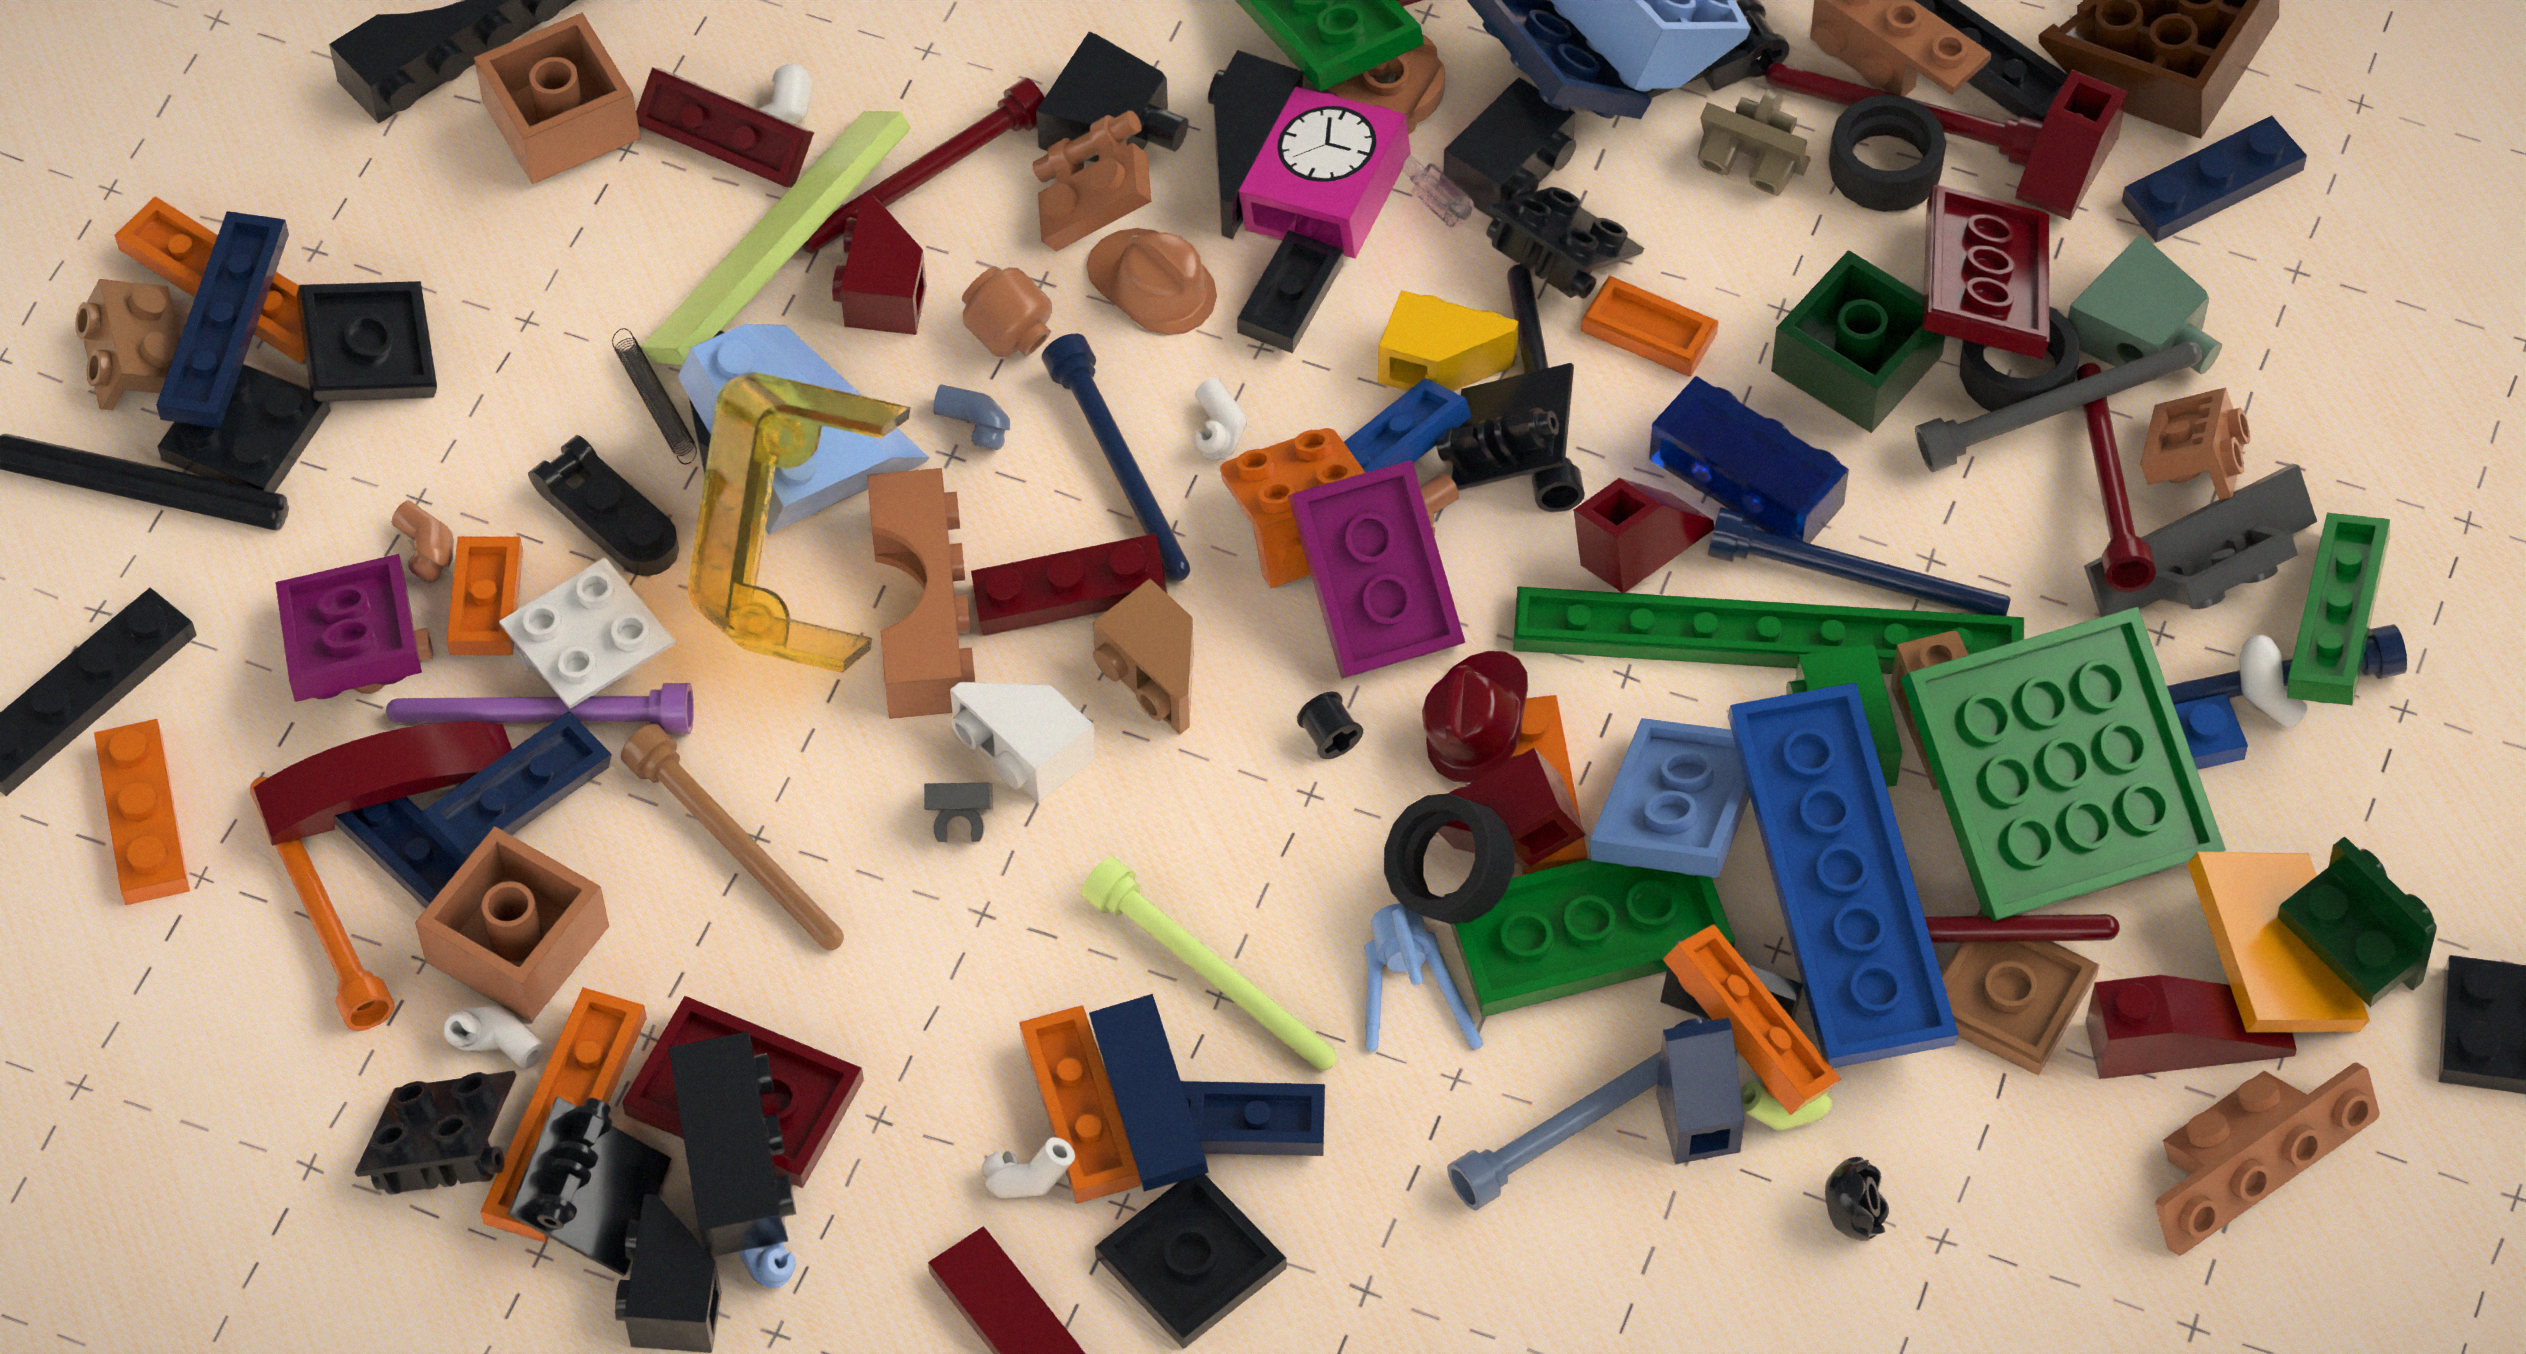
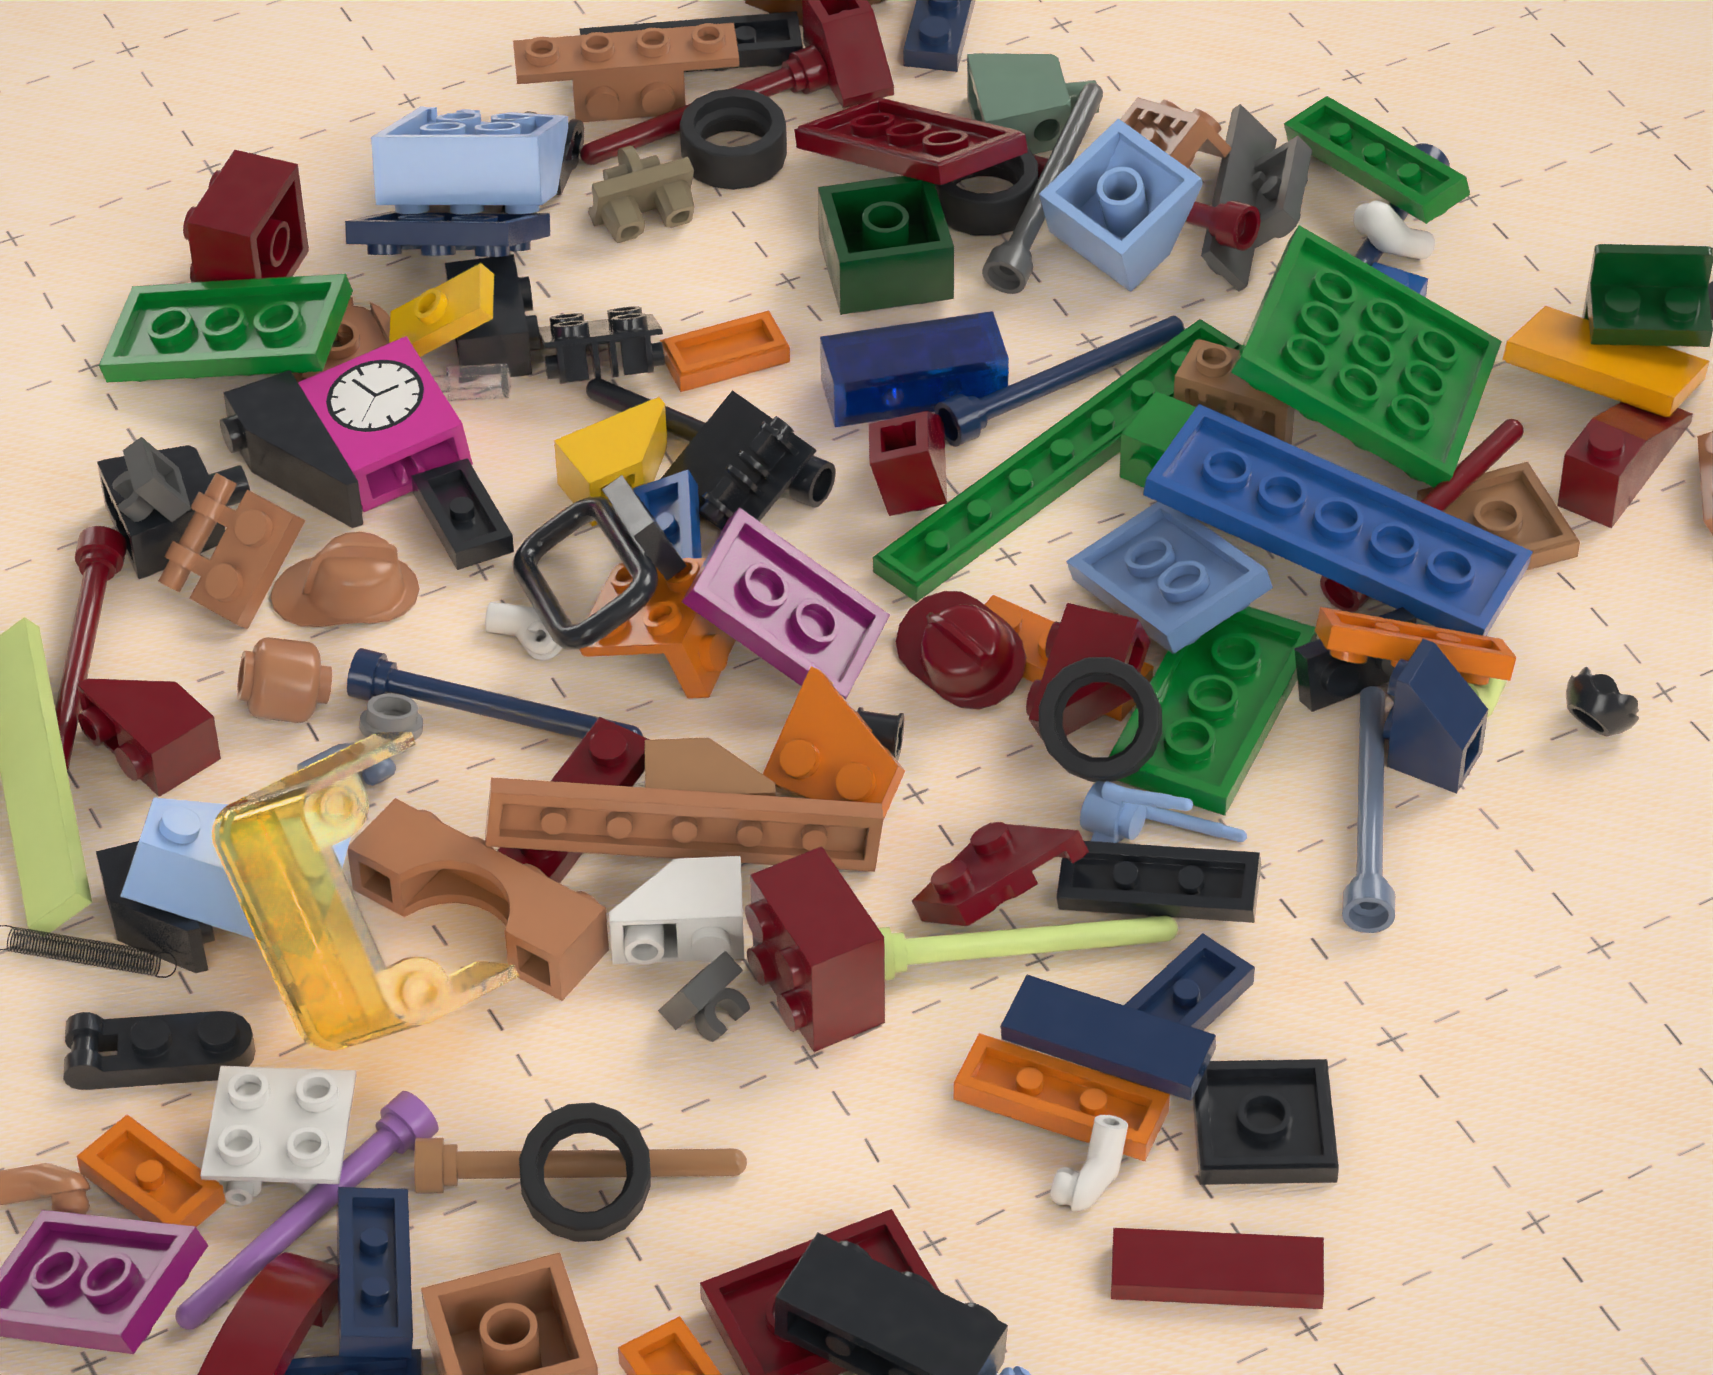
camera: 50 degrees left, 10 degrees down
(677, 821) = (575, 1120): none -> black tyre
(1038, 408) = (391, 714): none -> light grey plate
(1046, 838) = (816, 949): none -> dark red brick
(1084, 81) = (150, 484): none -> dark grey tile
(1092, 667) = (679, 823): none -> nougat plate
(1253, 897) = (993, 870): none -> dark red wing
(1269, 712) = (831, 750): none -> orange wing
(1326, 428) = (636, 541): none -> black bar
(1353, 1018) = (1162, 882): none -> black plate
(1457, 118) = (445, 311): none -> yellow plate
(2067, 467) = (1121, 204): none -> light blue slope

